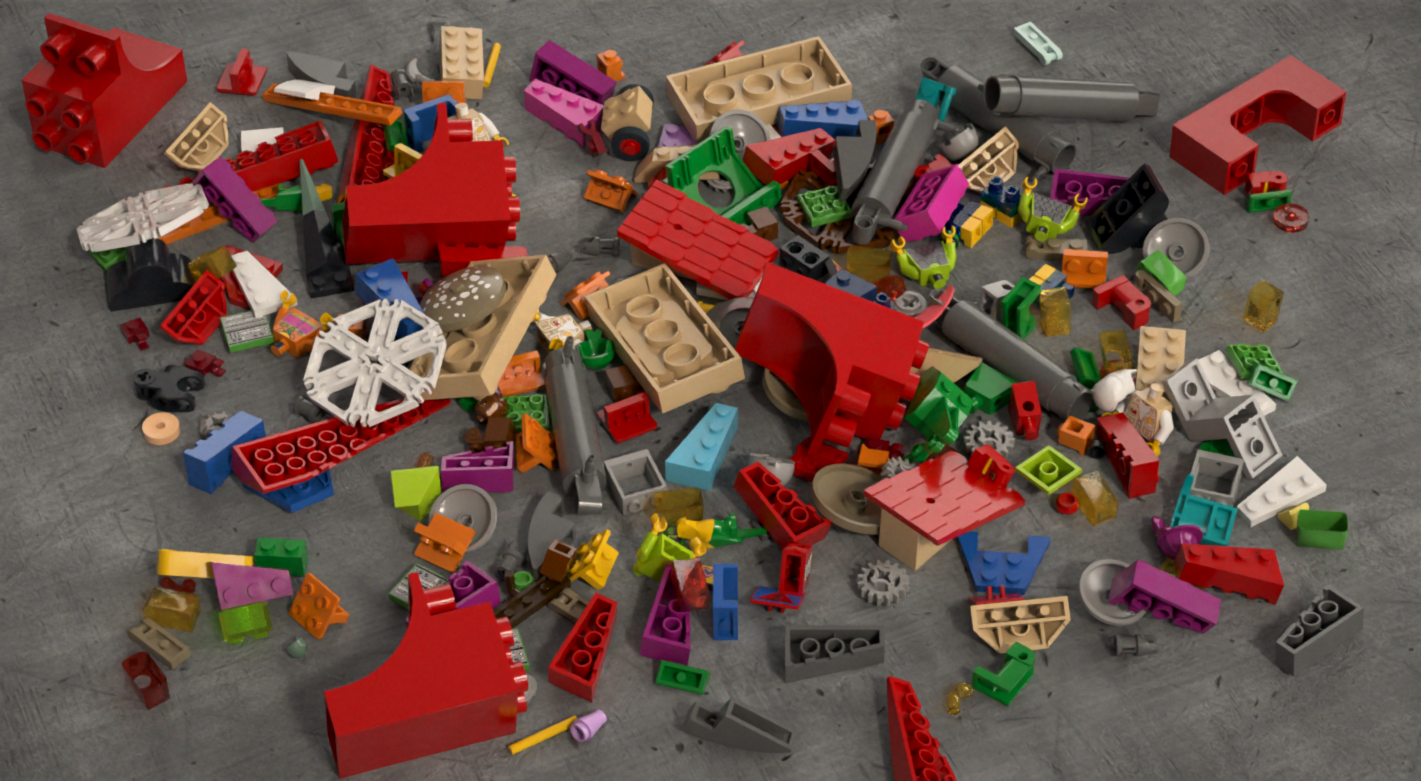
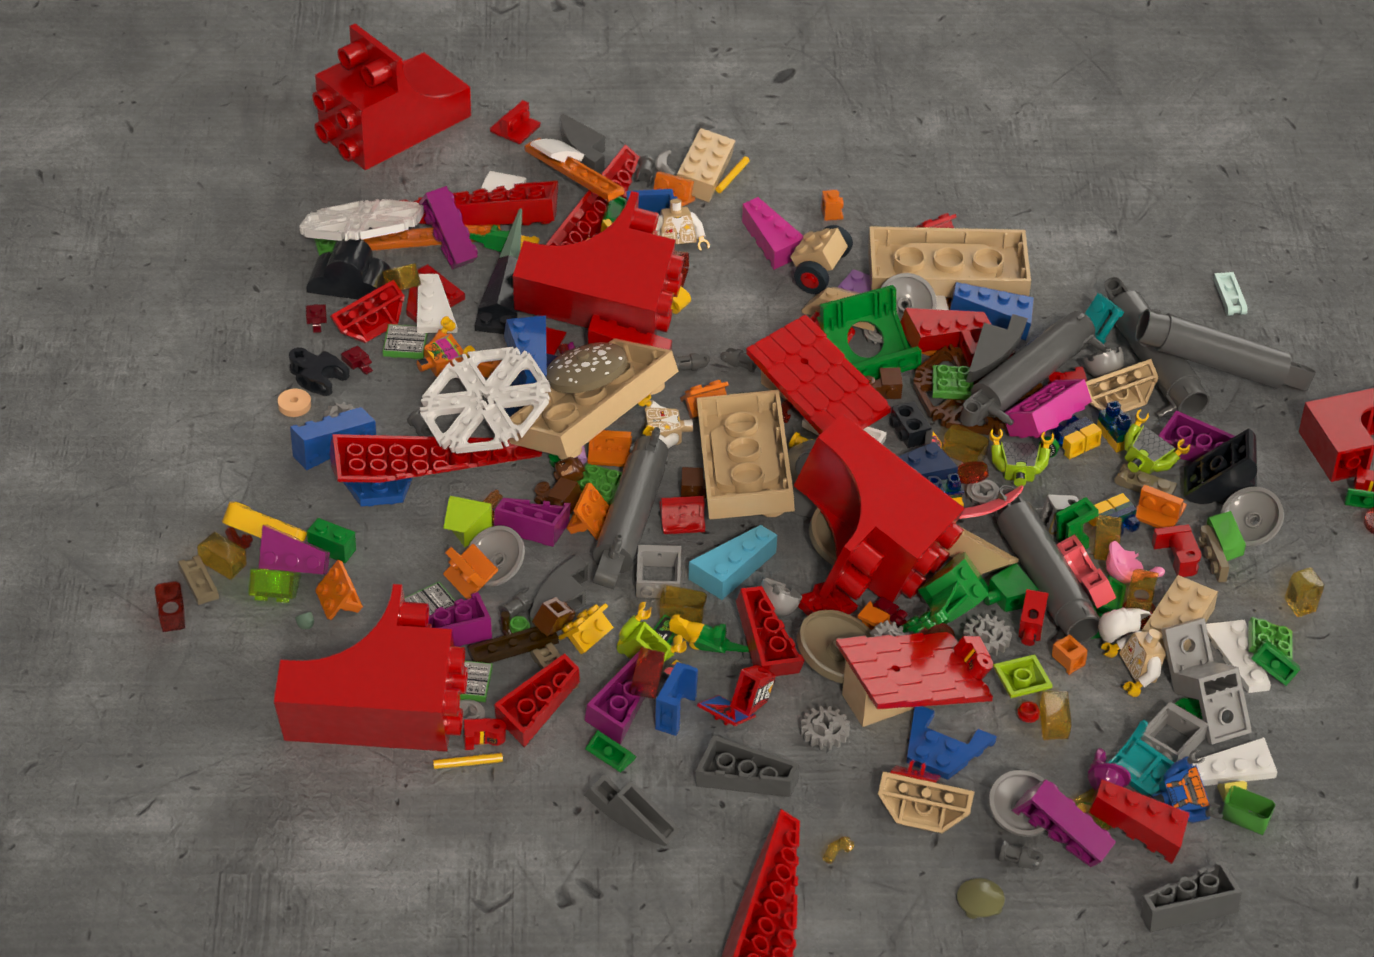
camera: 20 degrees right, 0 degrees up
(201, 141) = (451, 169): tan wedge -> none
(545, 700) = (484, 732): none -> red leg
(568, 72) = (792, 201): magenta wedge -> none
(586, 726) = (506, 765): lavender cone -> none
(593, 141) = (780, 268): dark red plate -> none
(596, 352) = (685, 449): green hat -> none
(608, 191) = (771, 312): orange bracket -> none
(884, 123) = (1041, 322): orange brick -> none
(1010, 678) = (892, 847): green piece -> none
(1070, 357) = (1090, 578): none -> coral arch
(1083, 334) = (1122, 563): none -> bright pink piece
(1096, 448) = (1081, 671): black hinge -> none
(1119, 698) = (980, 898): none -> olive dish
(1129, 455) = (1106, 686): red wedge -> none
(1257, 528) = (1185, 790): none -> torso

